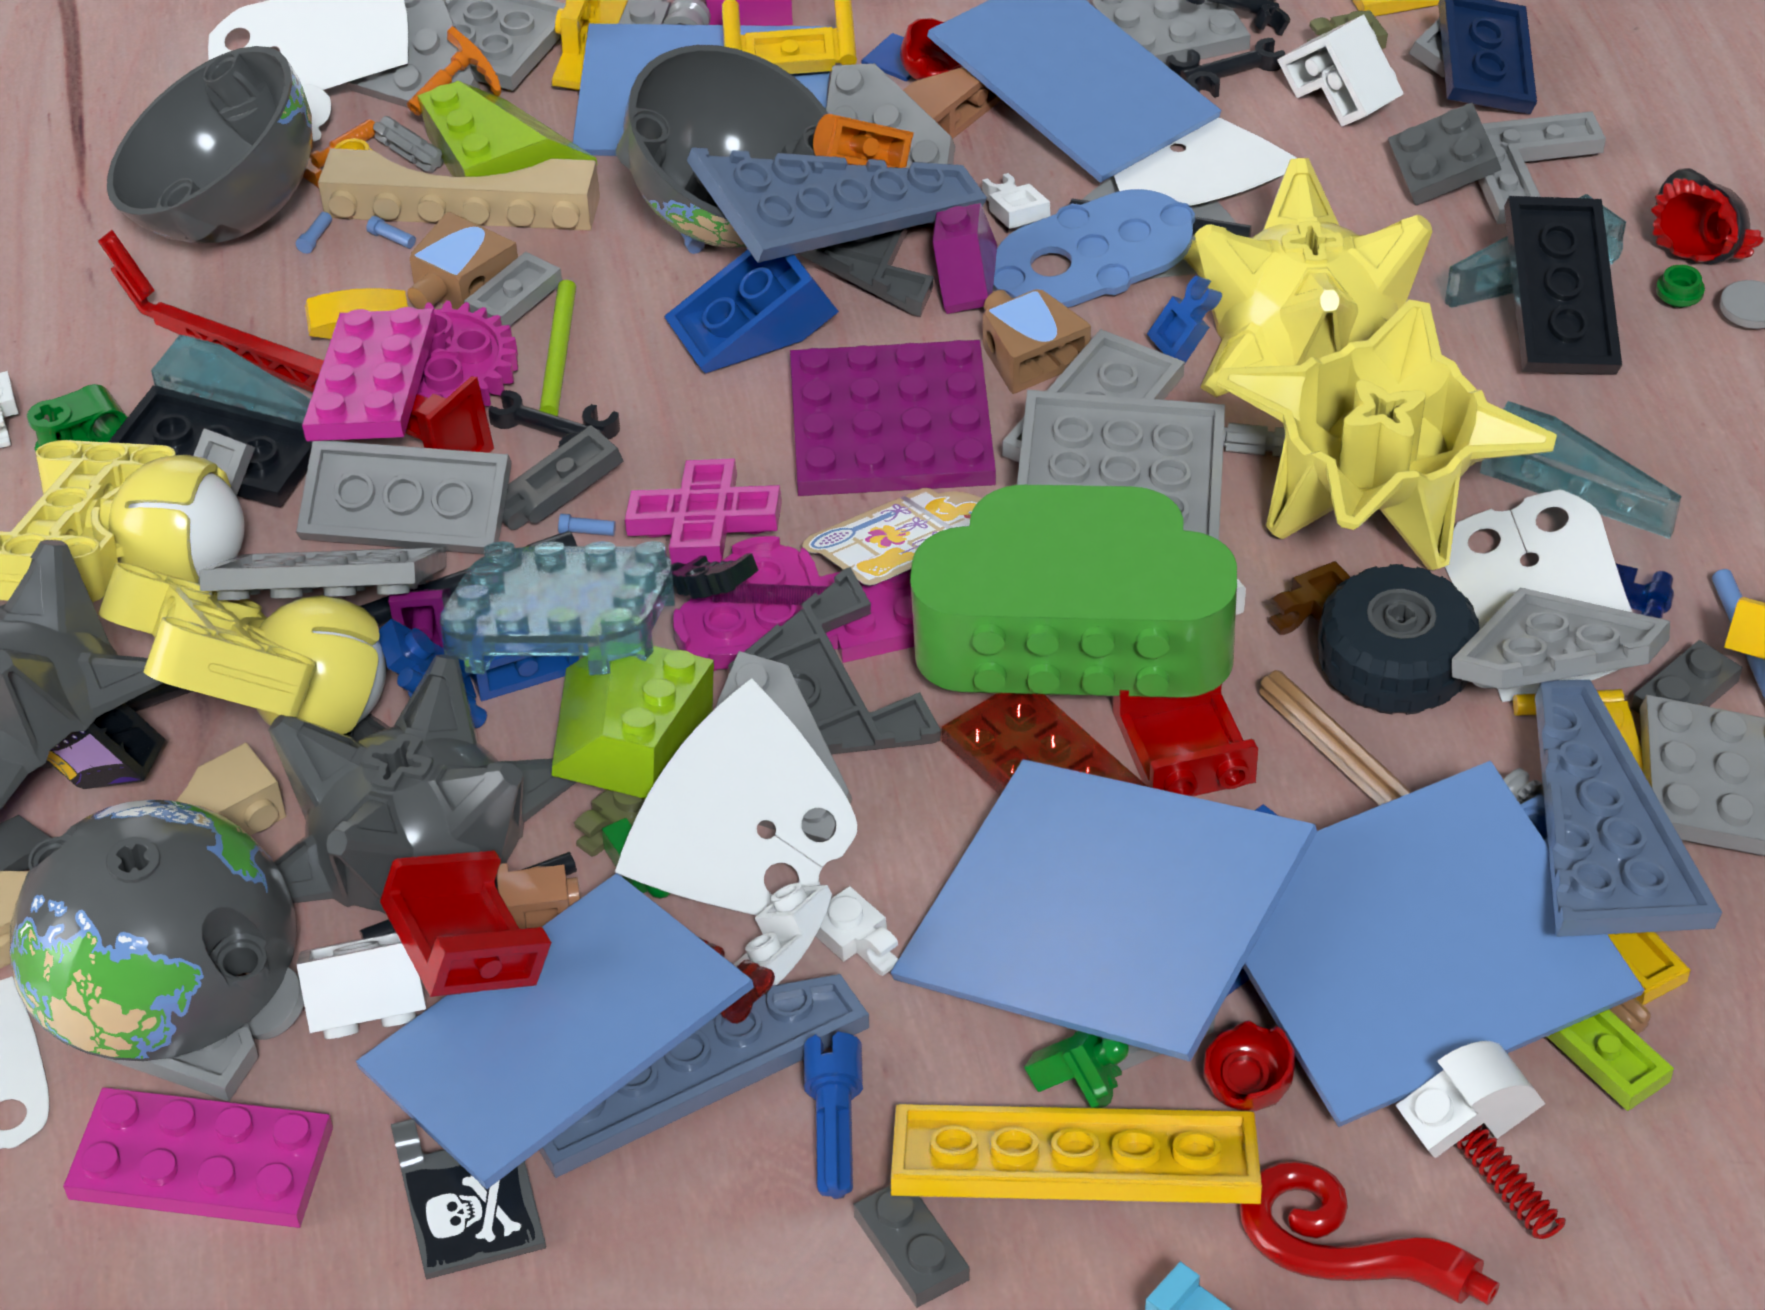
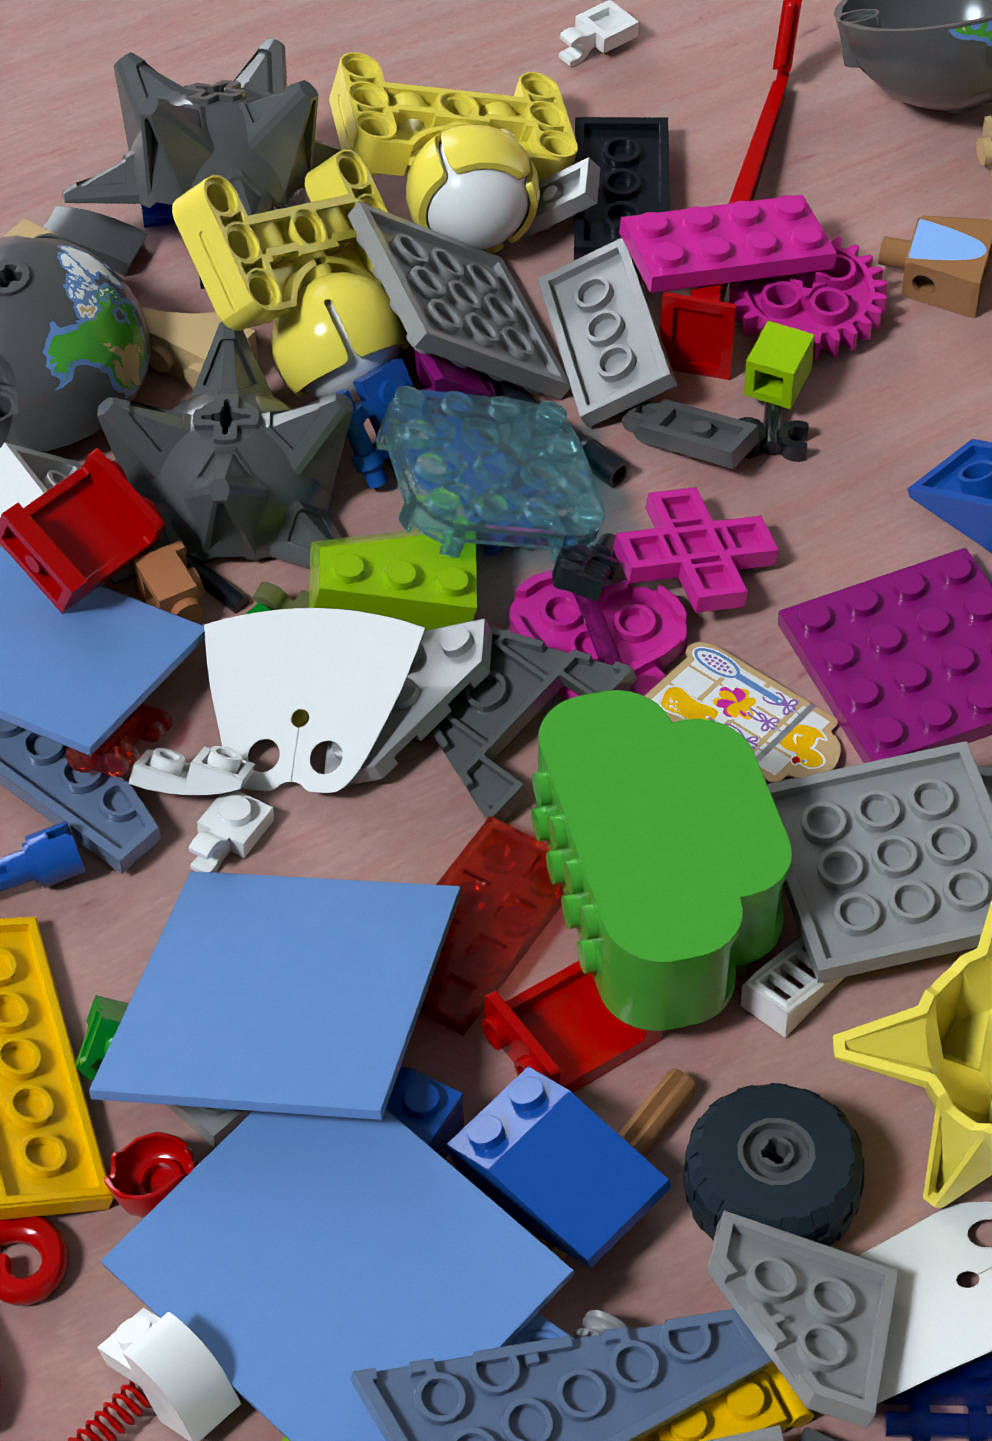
camera: 70 degrees right, 5 degrees up
(77, 416) = (603, 89): green piece -> none
(225, 377) = (697, 152): clear light blue slope -> none
(307, 241) = (947, 150): medium blue piece -> none
(324, 309) = (846, 214): yellow slope -> none
(378, 227) = (980, 190): medium blue piece -> none
(516, 288) = (935, 314): light grey plate -> none
(528, 391) = (779, 364): none -> lime brick
(558, 347) = (886, 375): lime bar -> none
(585, 525) = (648, 464): medium blue piece -> none
(1306, 597) = (826, 1080): reddish brown plate -> none
(1351, 761) = (557, 1167): none -> blue slope

